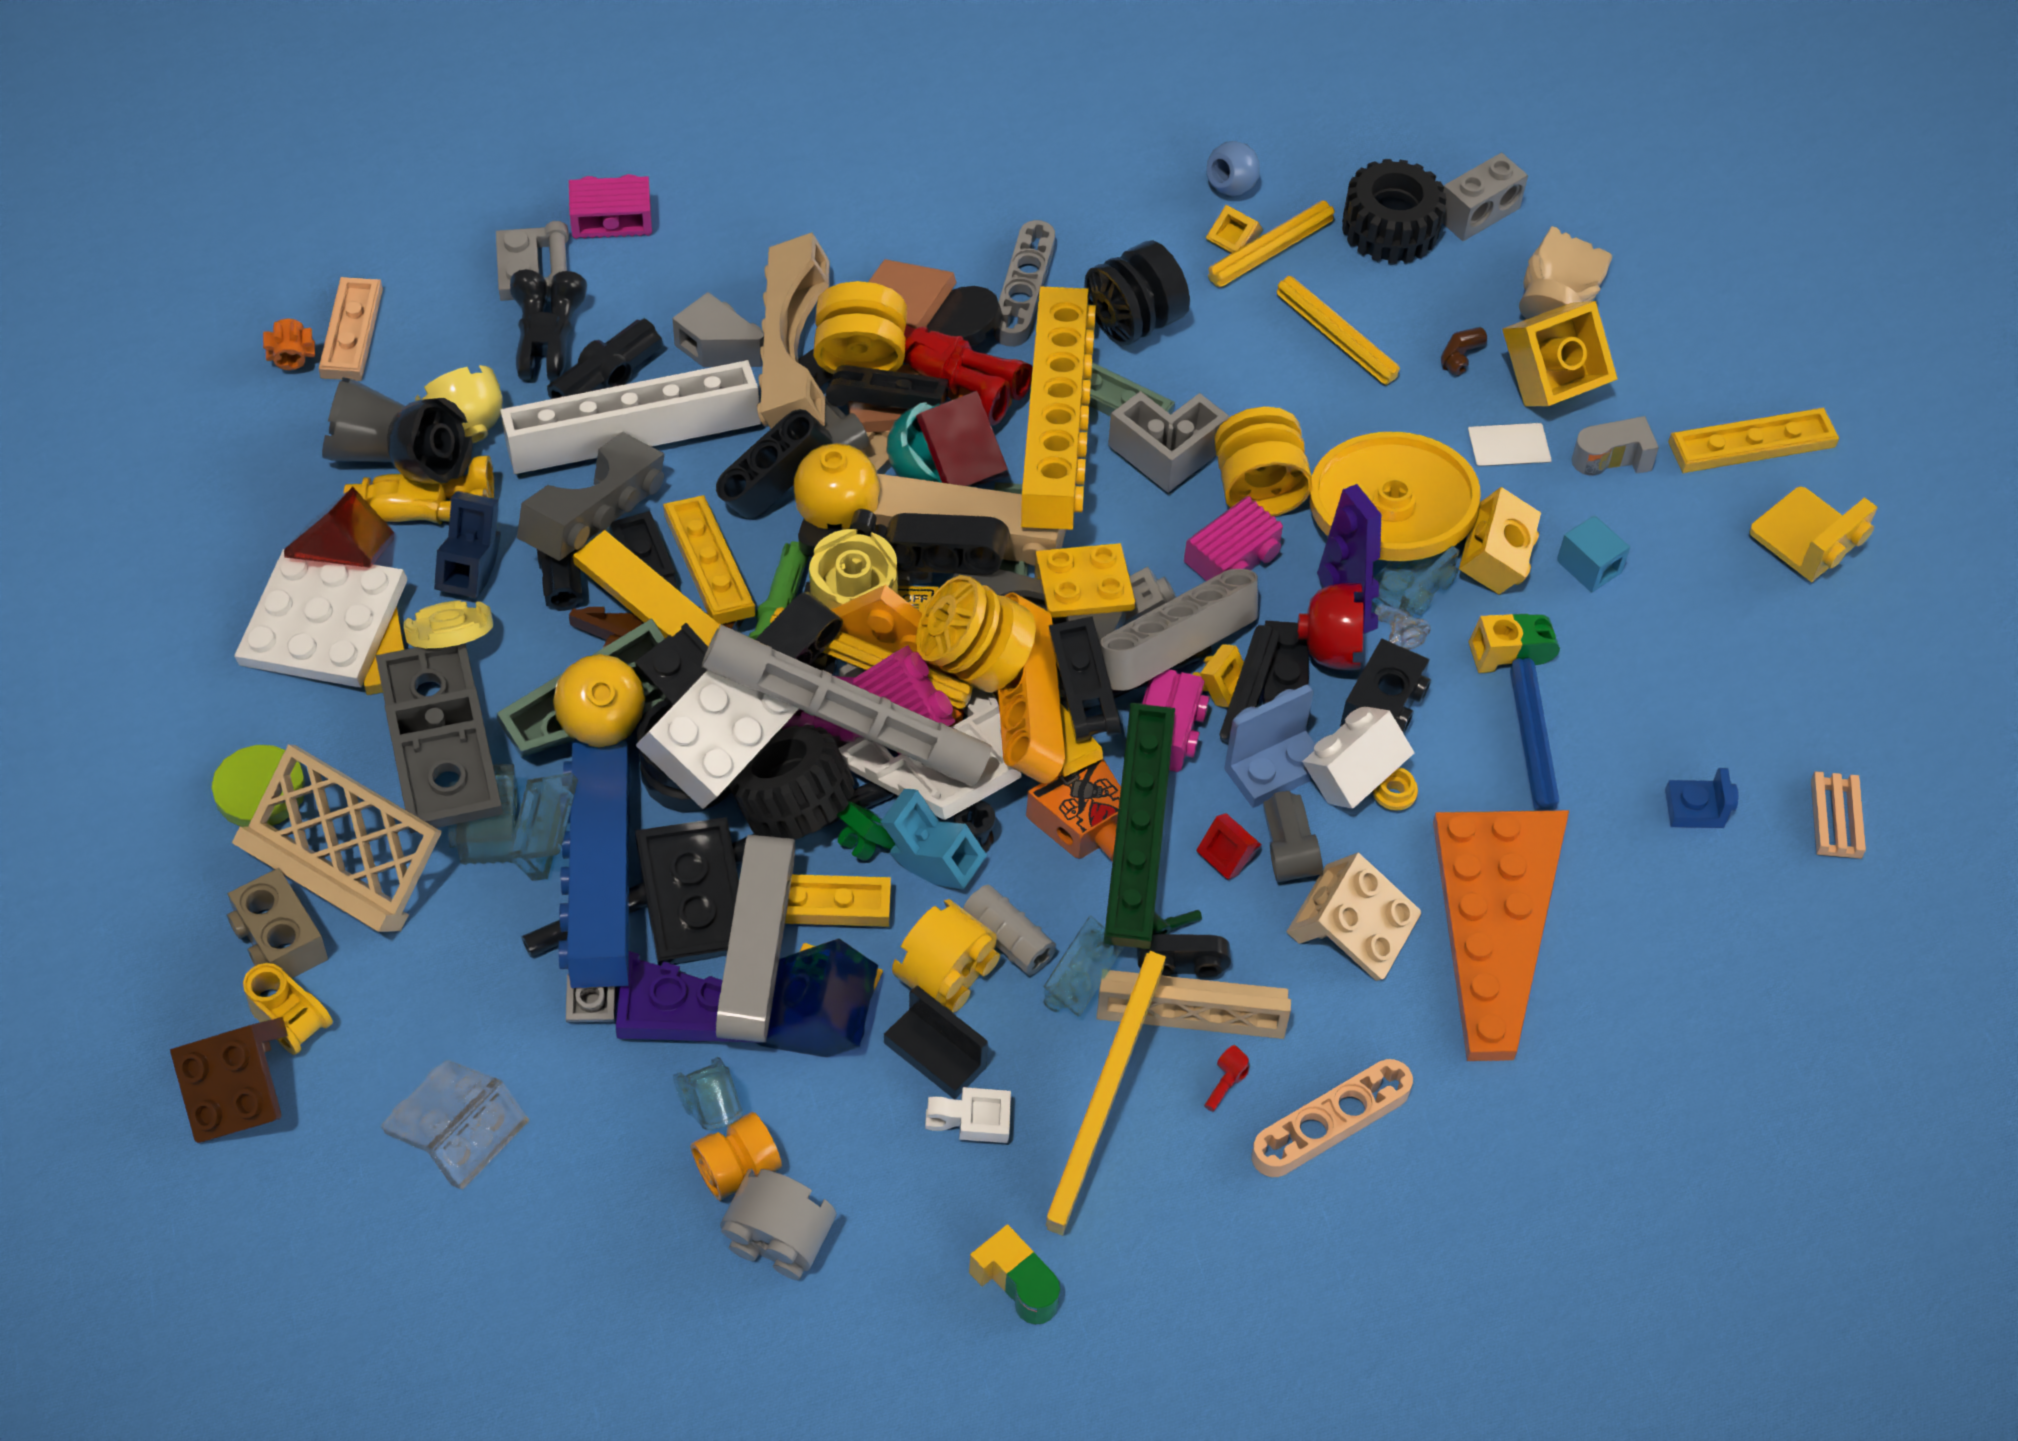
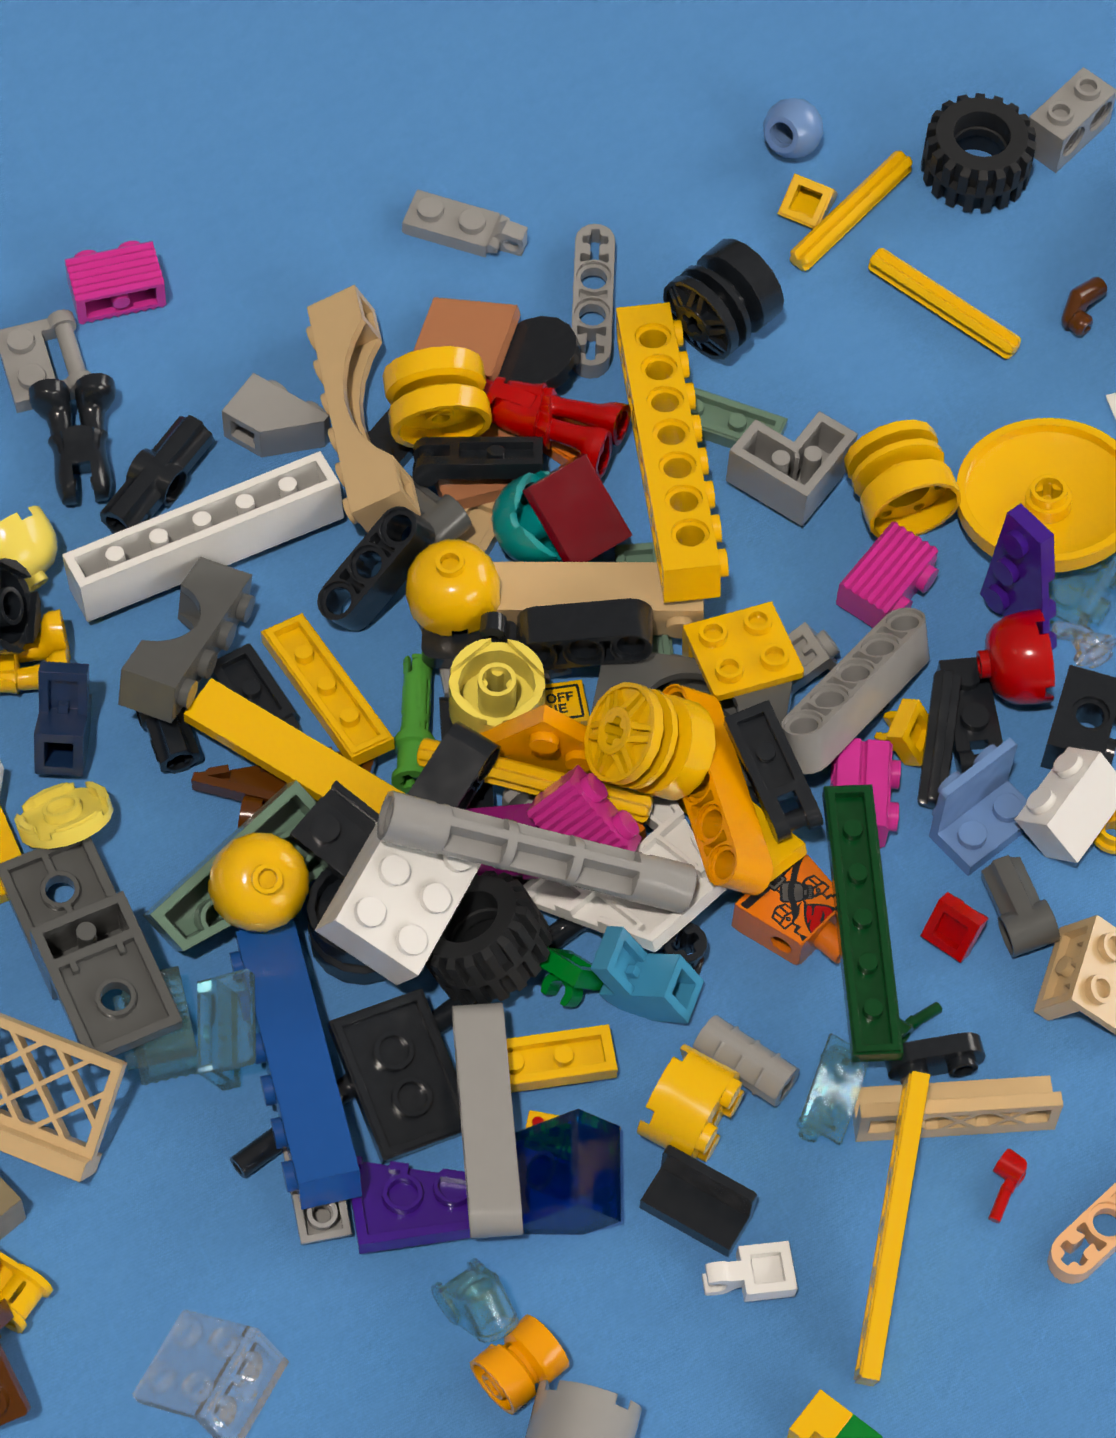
camera: 10 degrees left, 5 degrees up
(925, 207) = (462, 226): none -> light grey hinge

